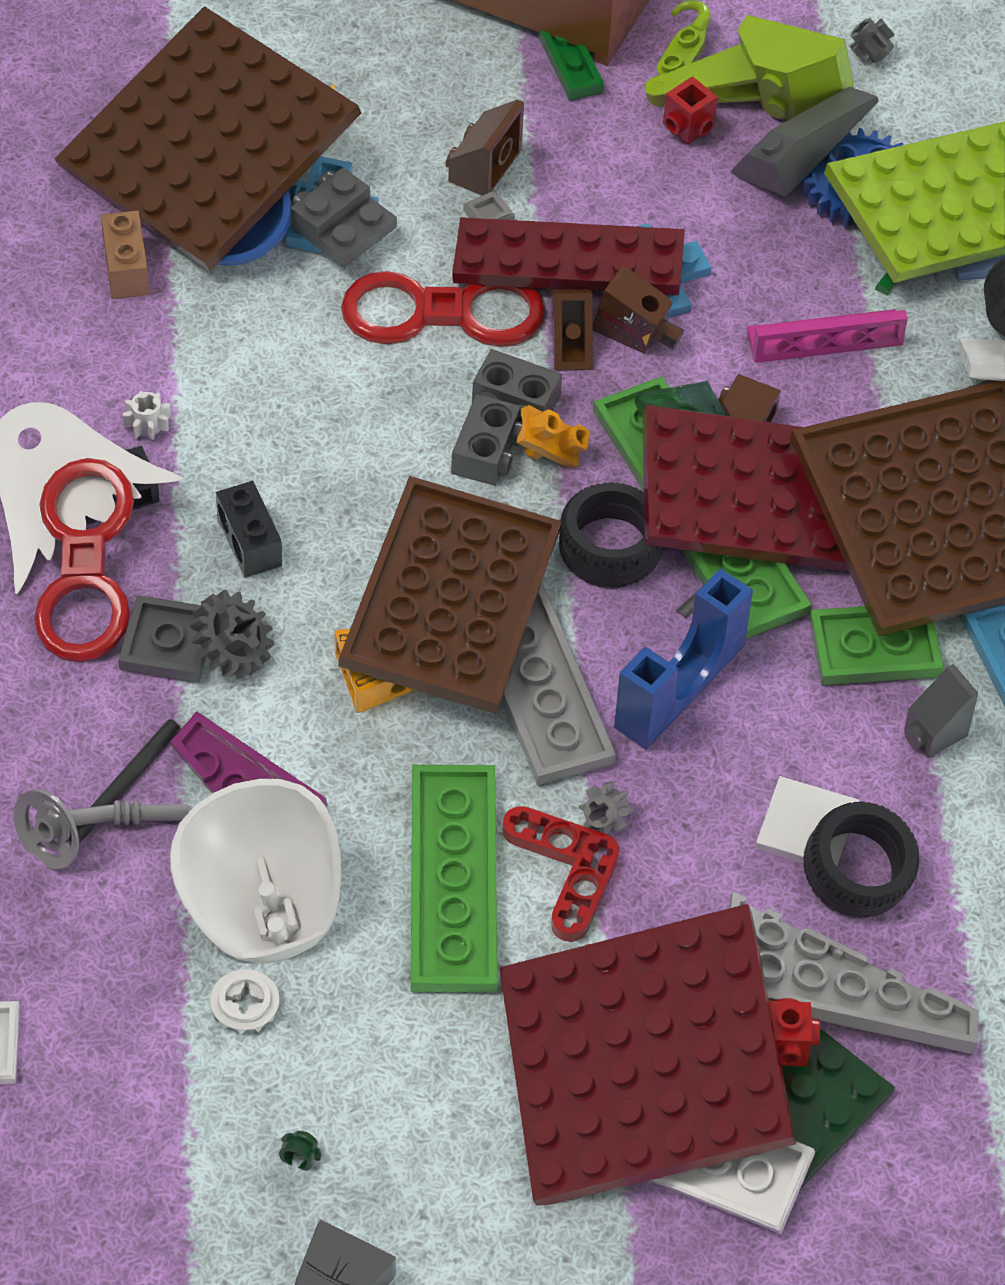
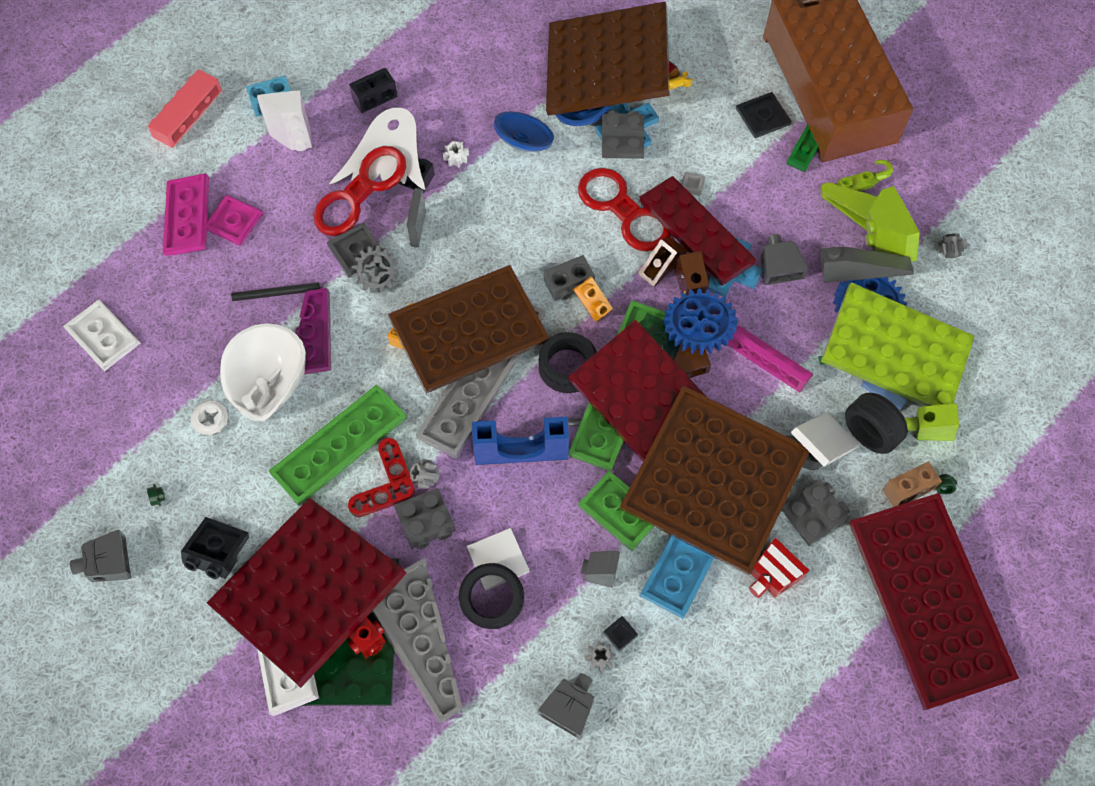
camera: 50 degrees right, 10 degrees up
(61, 820) = (223, 285): light grey dish -> none
(125, 254) = (525, 82): medium nougat brick -> none
(207, 315) = (523, 131): none -> blue dish
(209, 526) = (416, 217): none -> dark grey tile
(249, 529) = (434, 232): black brick -> none
(463, 1131) = (214, 548): none -> black plate
(470, 63) = (763, 115): none -> black tile
(487, 148) = (719, 157): reddish brown slope -> none
(517, 382) = (611, 267): dark grey brick -> none
(669, 860) = (425, 519): none -> dark grey plate
(690, 110) = (827, 209): red brick -> none
(709, 212) = (782, 261): none -> dark grey torso
(714, 349) = (681, 315): none -> blue gear

